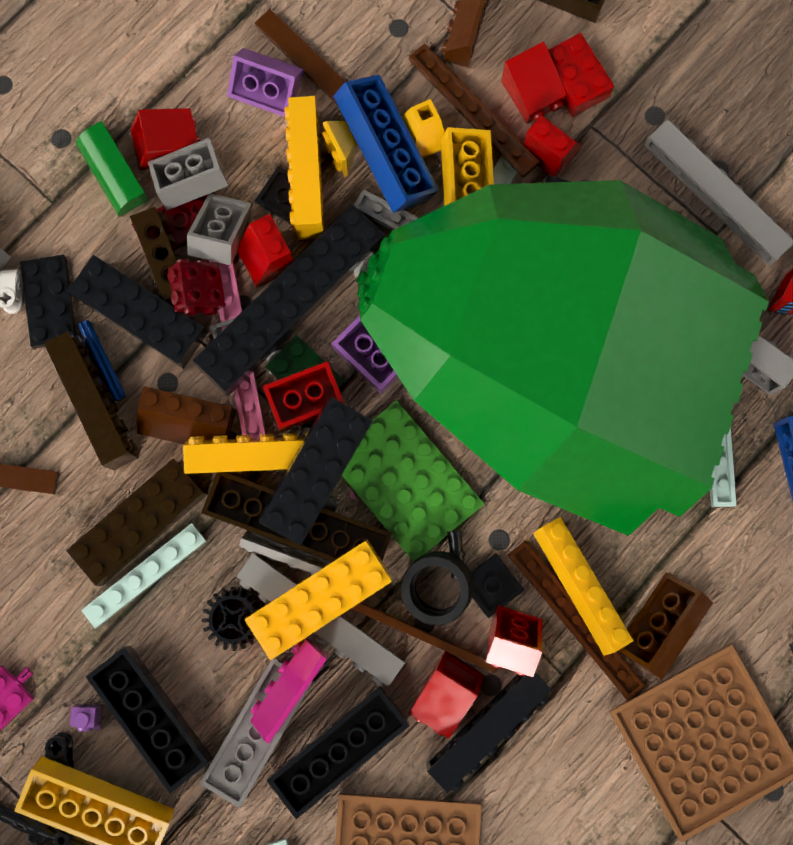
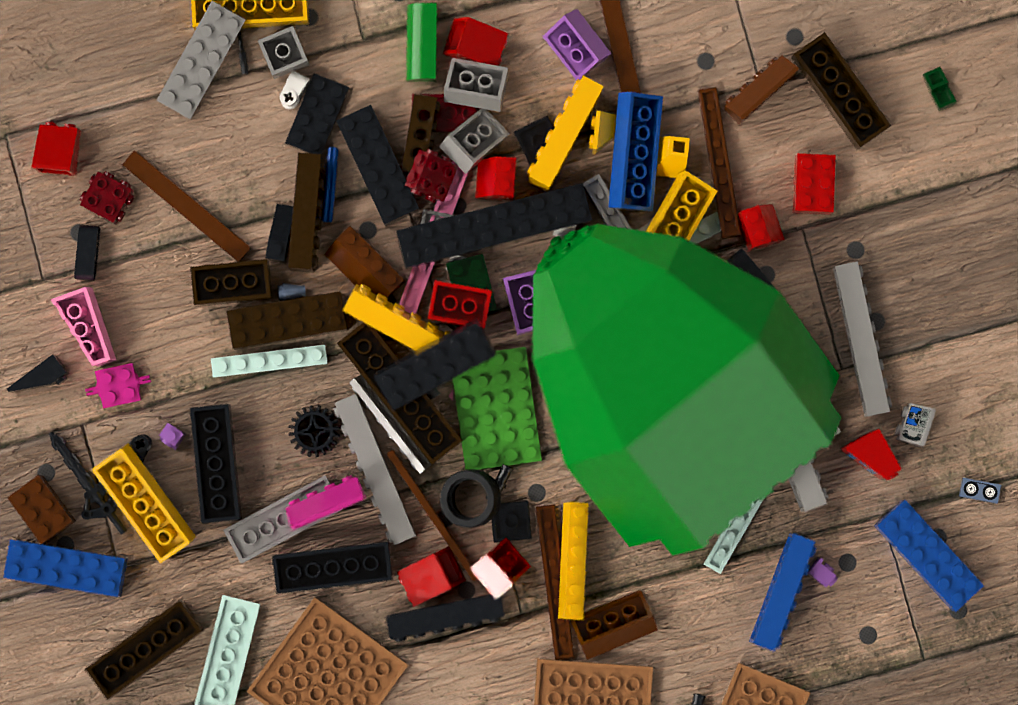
camera: 30 degrees right, 5 degrees up
(55, 519) = (231, 282): none -> dark brown brick
(77, 442) = (280, 234): none -> black slope
(123, 490) = (290, 291): none -> sand blue cone
(319, 599) = (383, 455): yellow brick -> none
(534, 83) = (776, 173): red slope -> none

